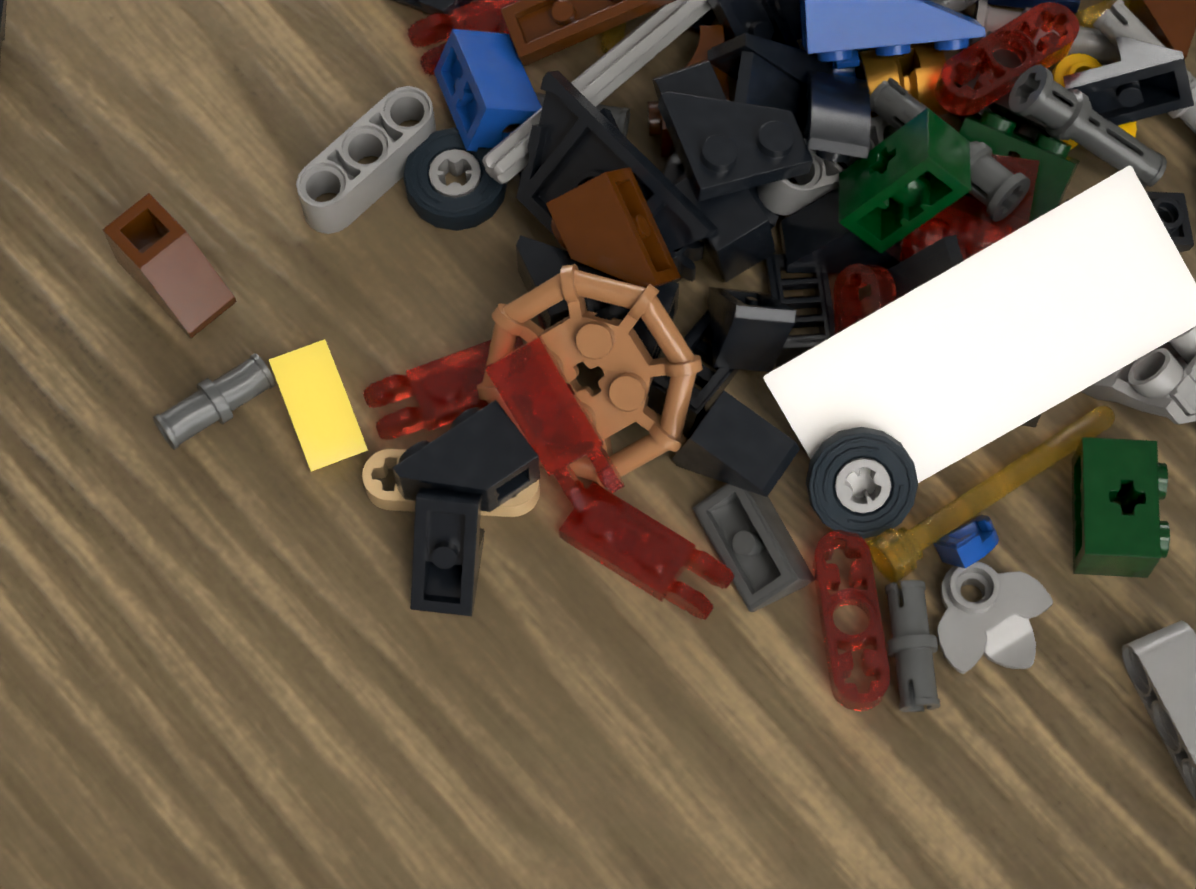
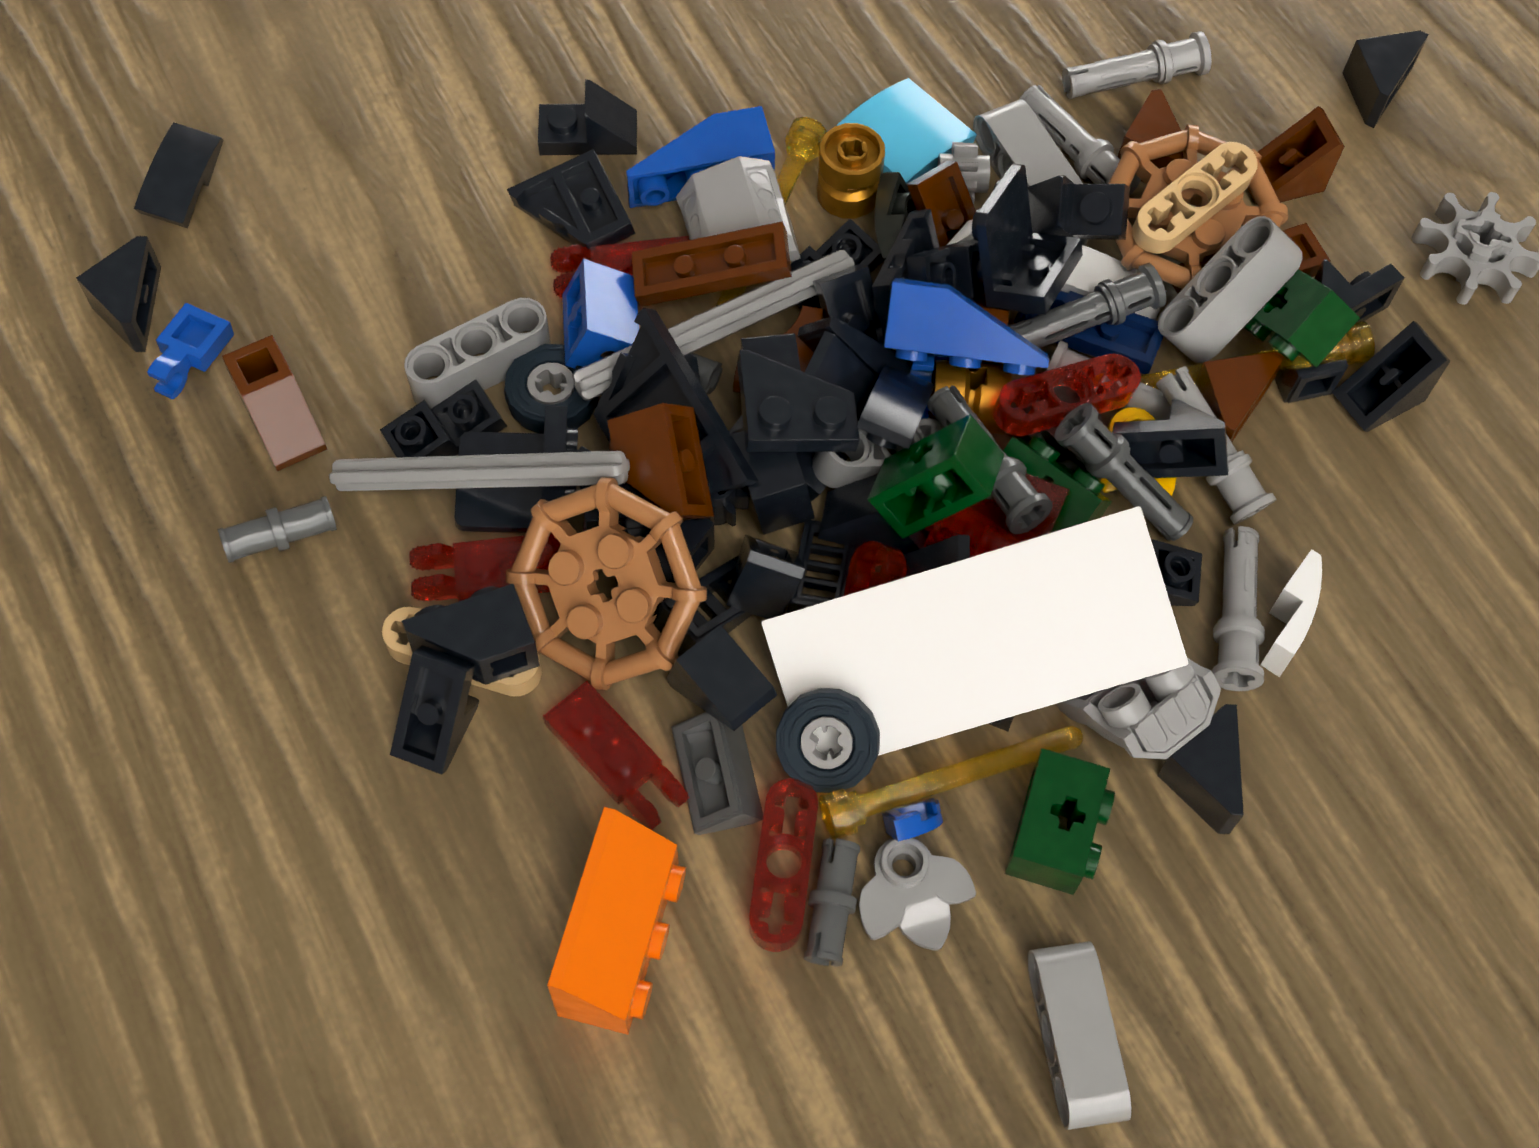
camera: 10 degrees right, 5 degrees down
(49, 219) = (187, 341): none -> blue plate
(318, 405) = (366, 555): light yellow slope -> none
(356, 250) = (437, 430): none -> black slope
(417, 288) = (479, 471): none -> light grey axle
(450, 282) = (510, 507): none -> black bracket
(552, 418) = (559, 614): clear red hinge -> none
(709, 724) = (616, 925): none -> orange slope

